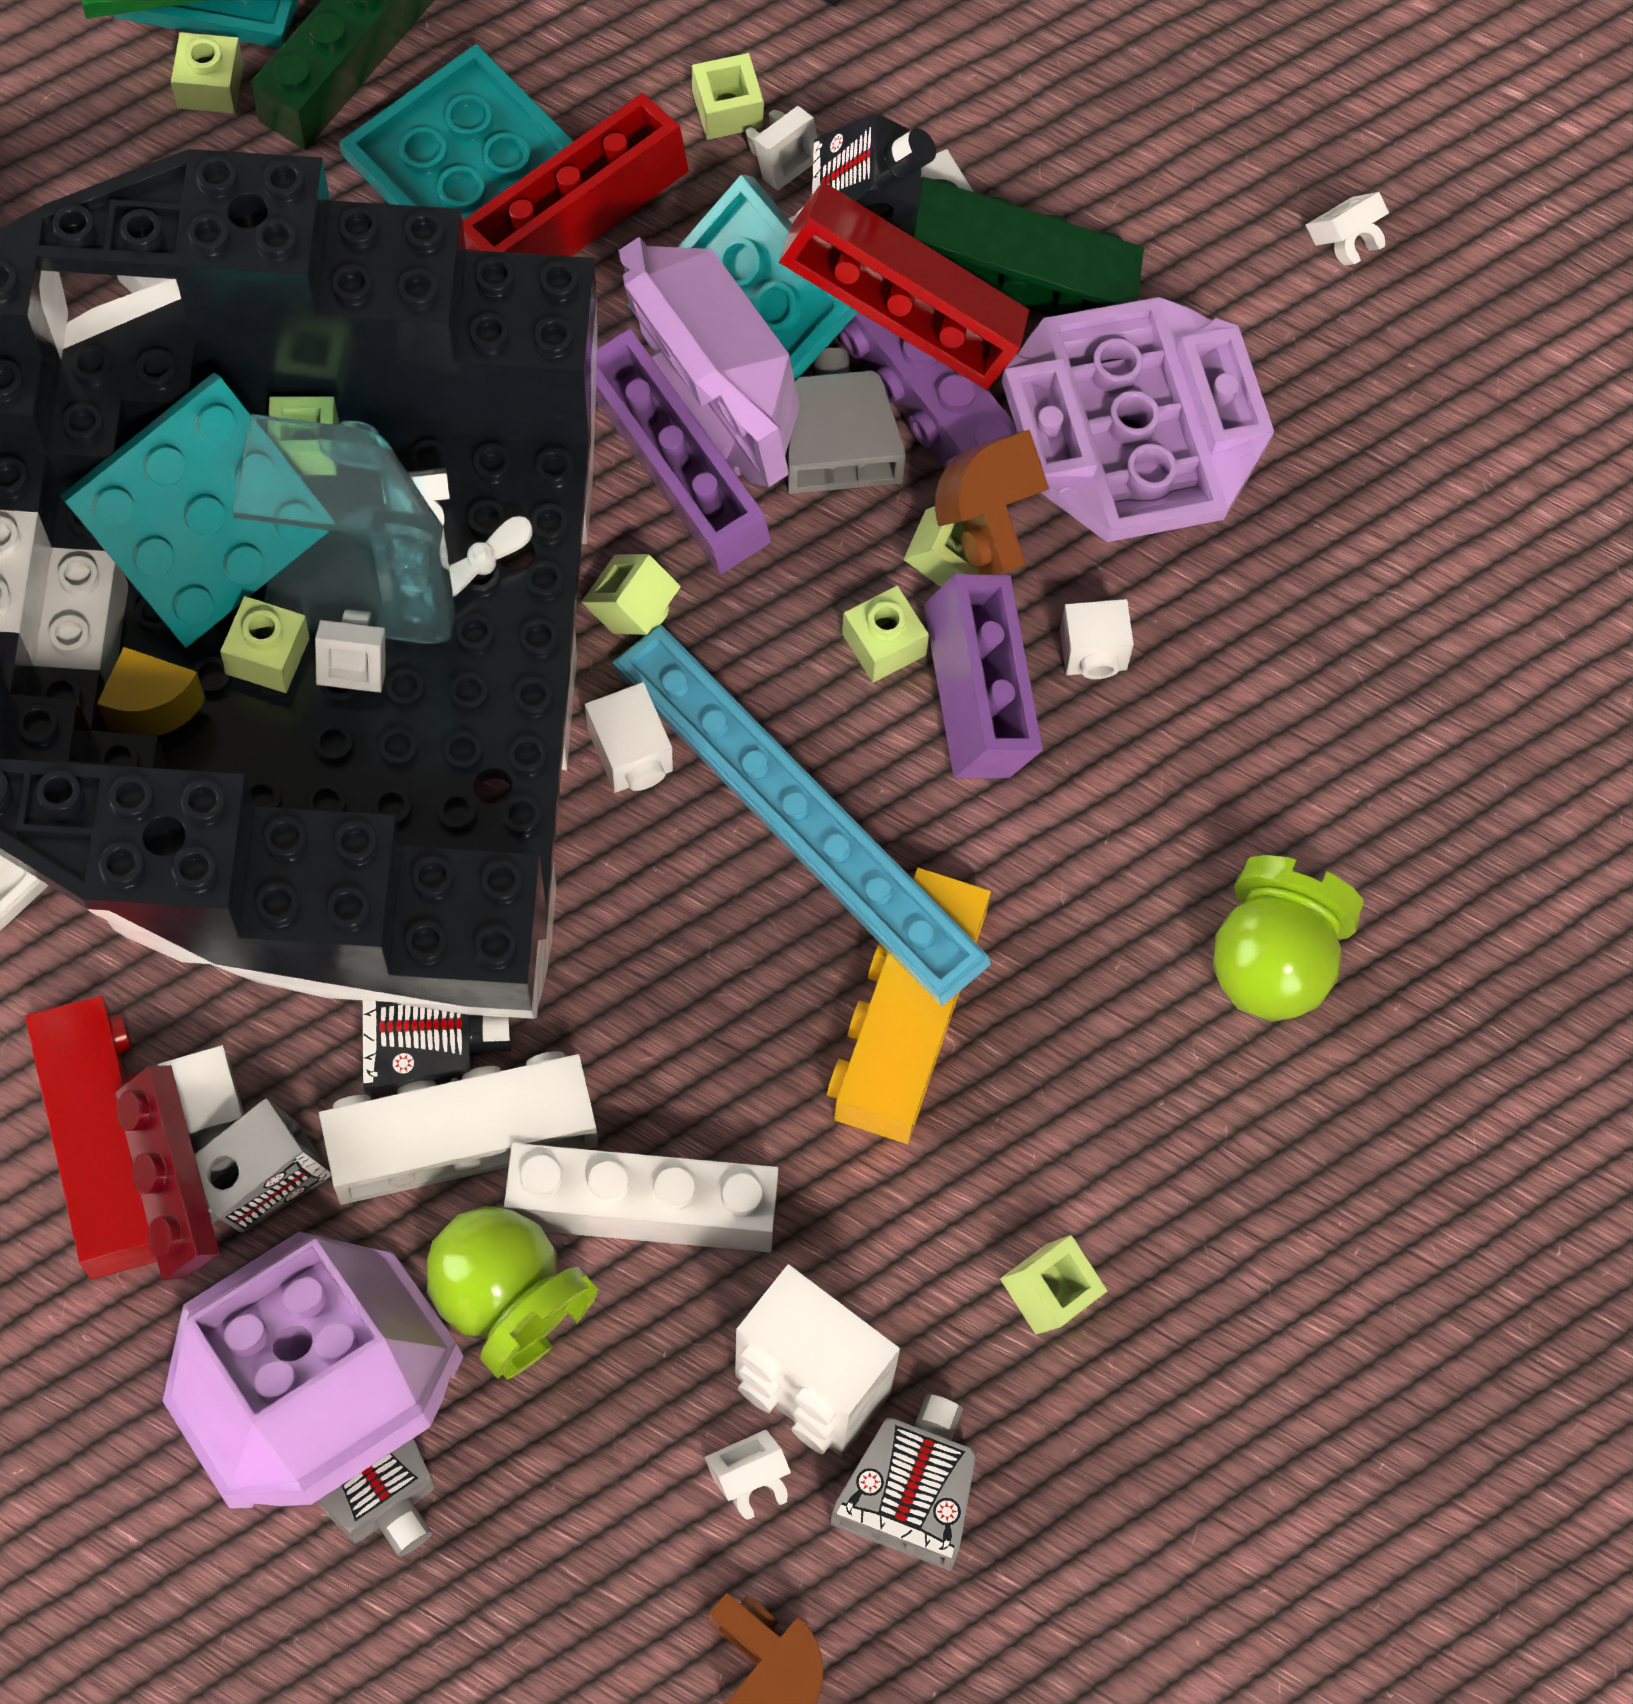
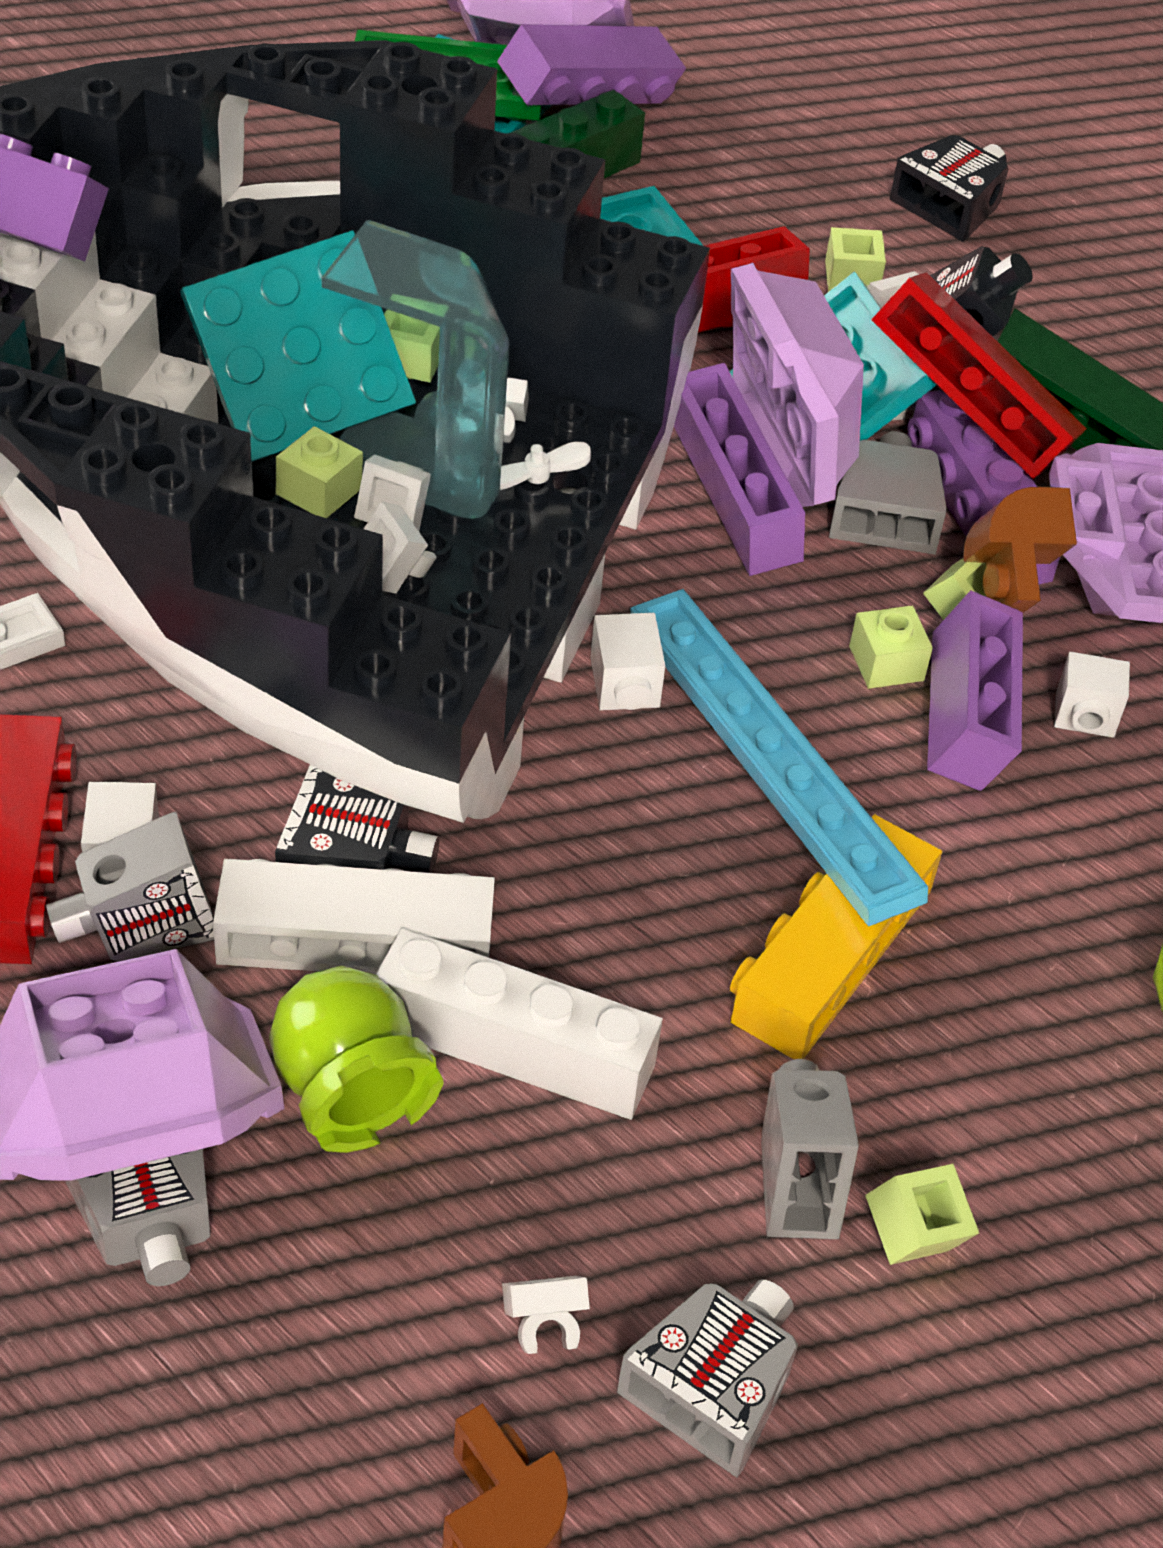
camera: 15 degrees right, 20 degrees down
(166, 1173) = (54, 861): dark red plate -> none
(371, 725) = (401, 546): none -> white tile
(631, 594) = (665, 559): yellowish green plate -> none
(813, 1363) = (647, 1192): white brick -> none
(937, 1249) = (811, 1115): none -> light grey torso

